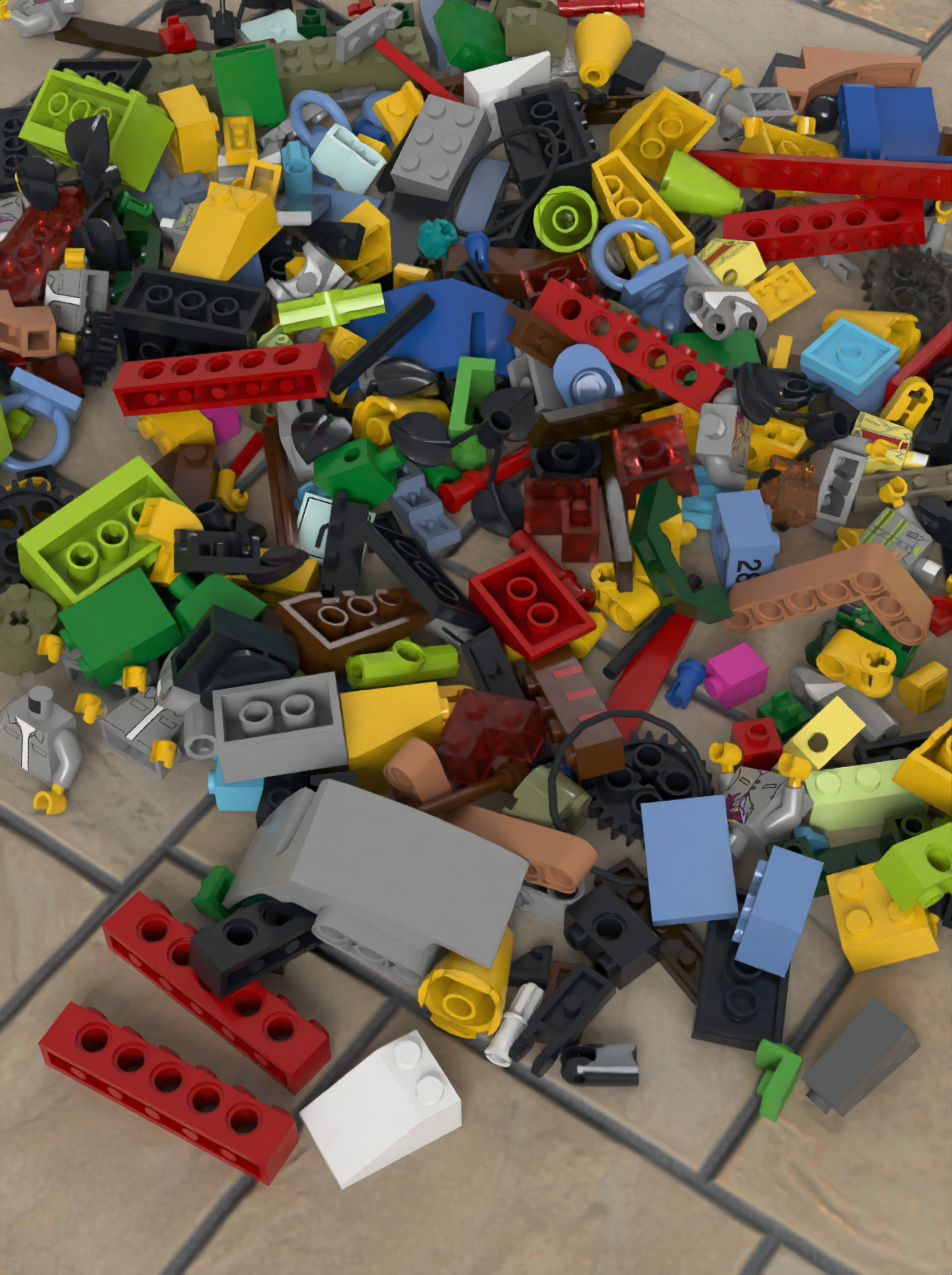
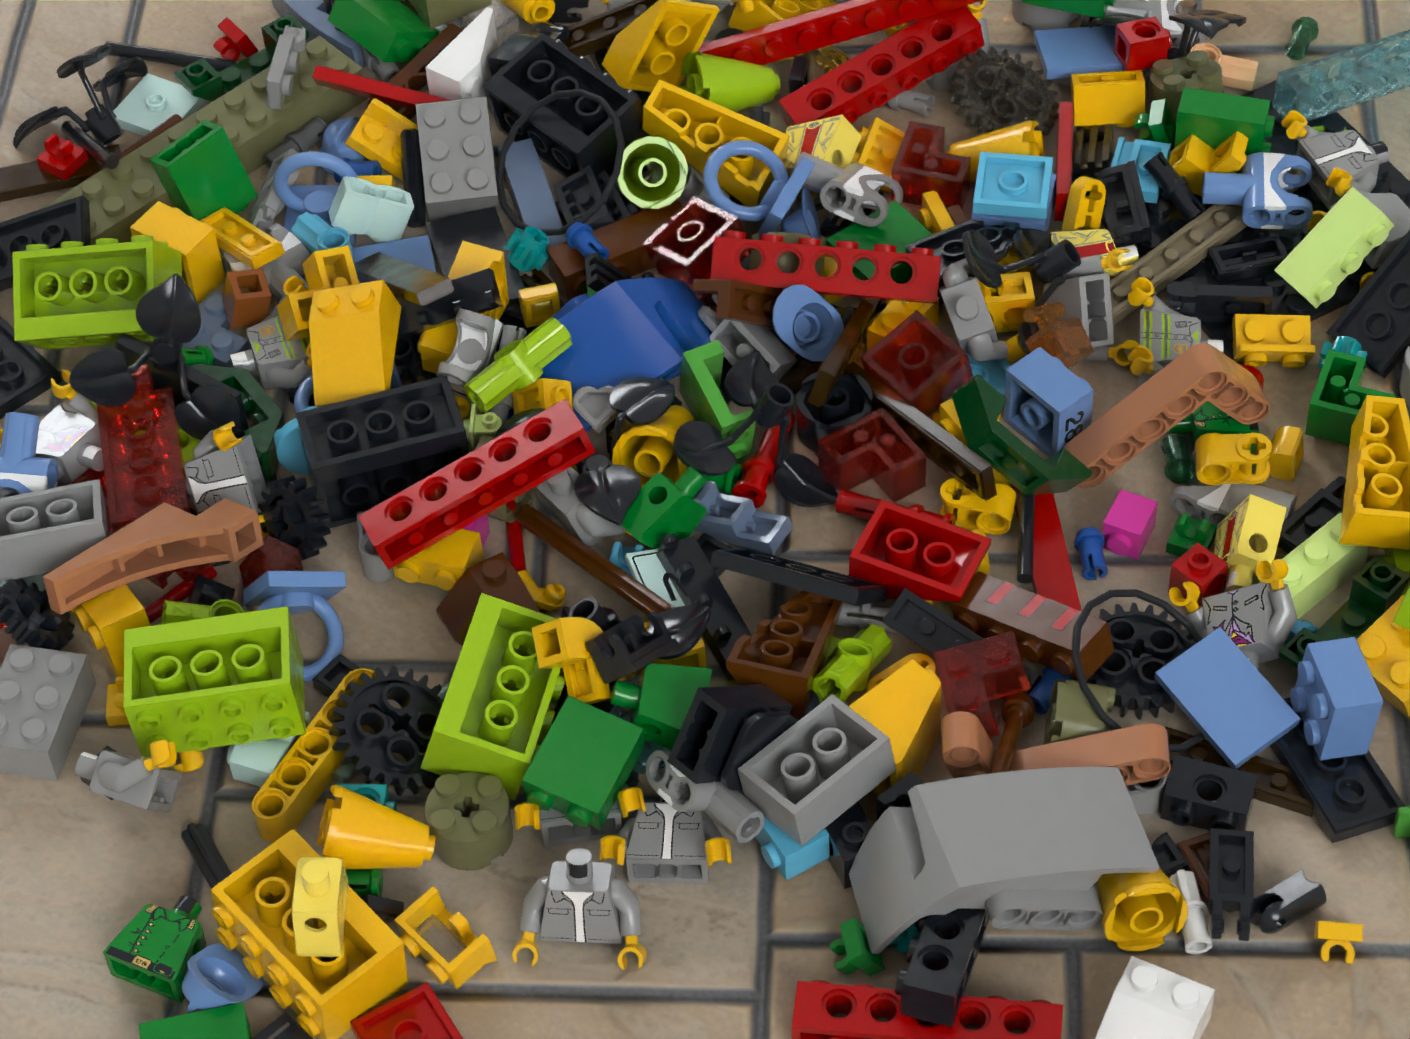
camera: 30 degrees left, 0 degrees up
(198, 35) = (90, 144): none -> black bar
(199, 176) = (246, 298): none -> dark orange brick
(381, 343) = (597, 367): black axle -> none
(624, 1119) = (1338, 934): none -> yellow tile
(801, 312) = (925, 167): none -> clear red brick

